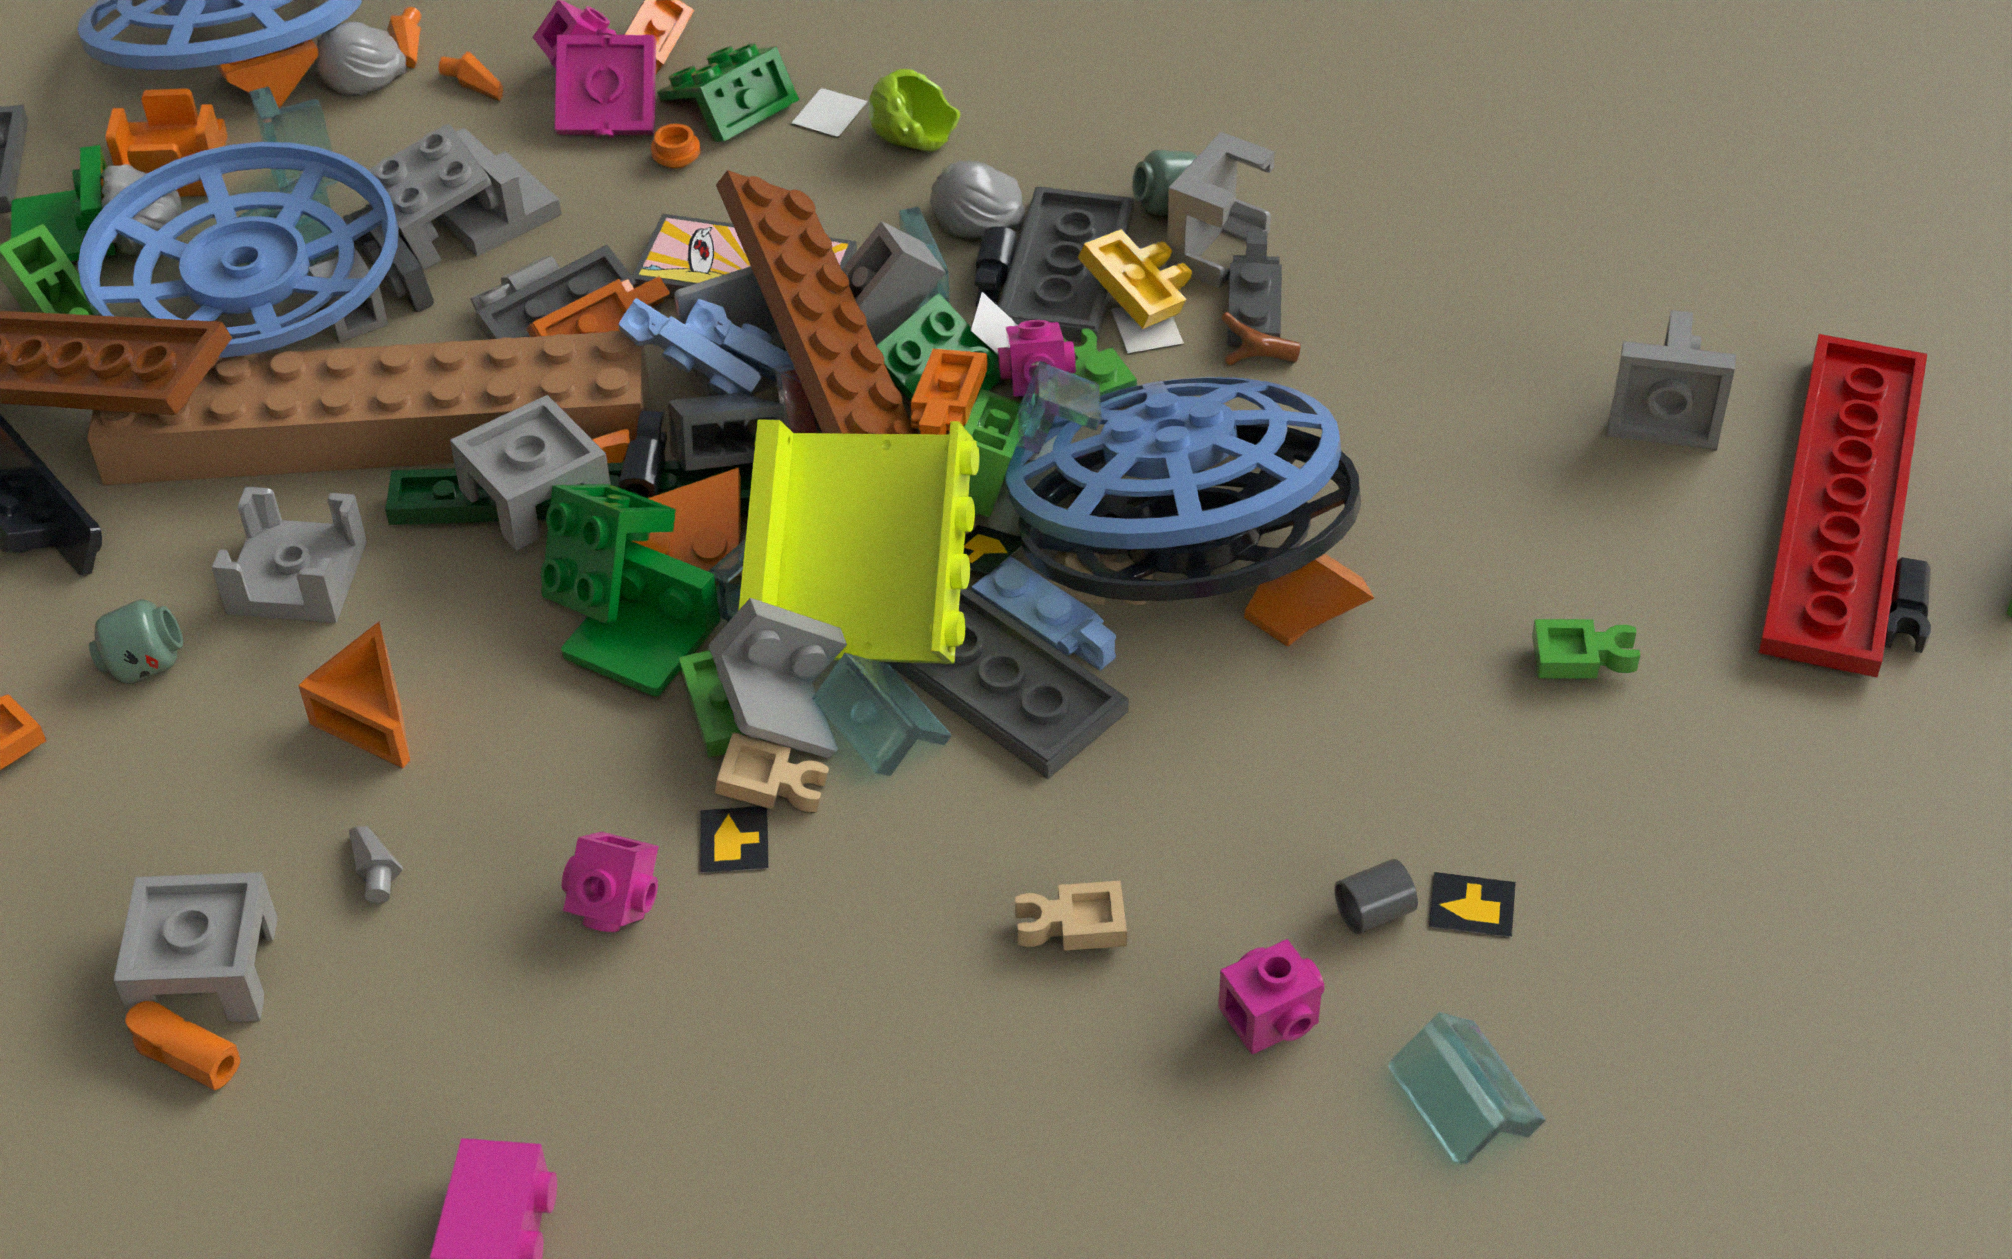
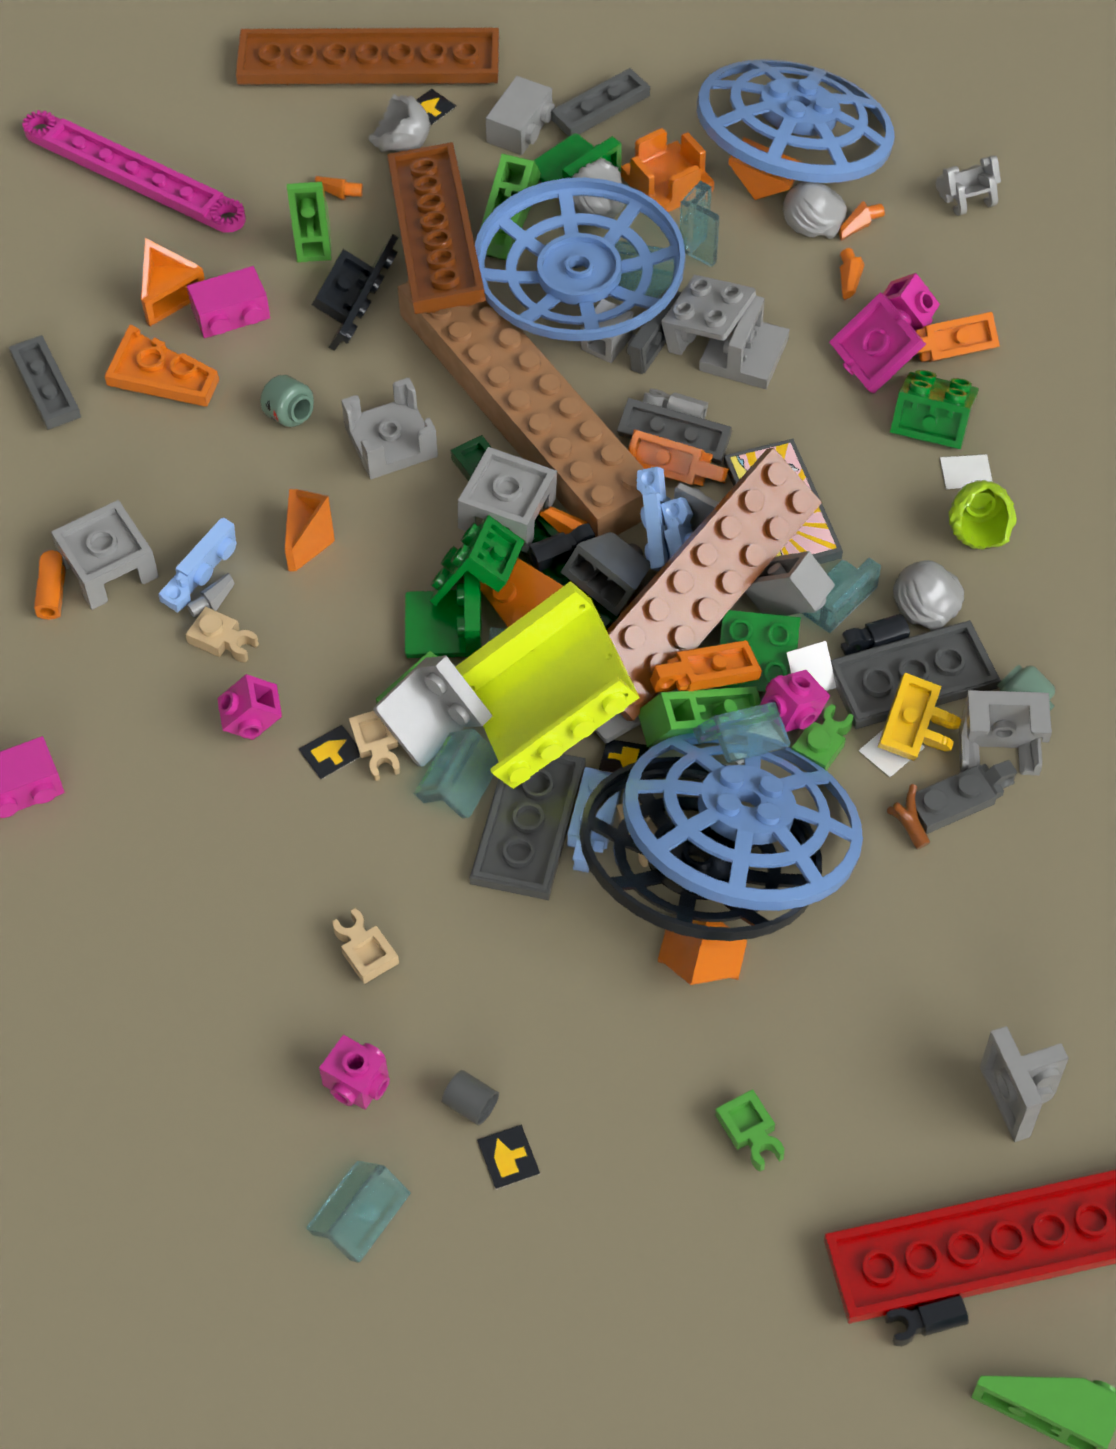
camera: 60 degrees right, 10 degrees up
(318, 853) = (199, 565): none -> light blue hinge
(444, 883) = (218, 632): none -> tan plate
(675, 146) = (861, 410): orange plate -> none

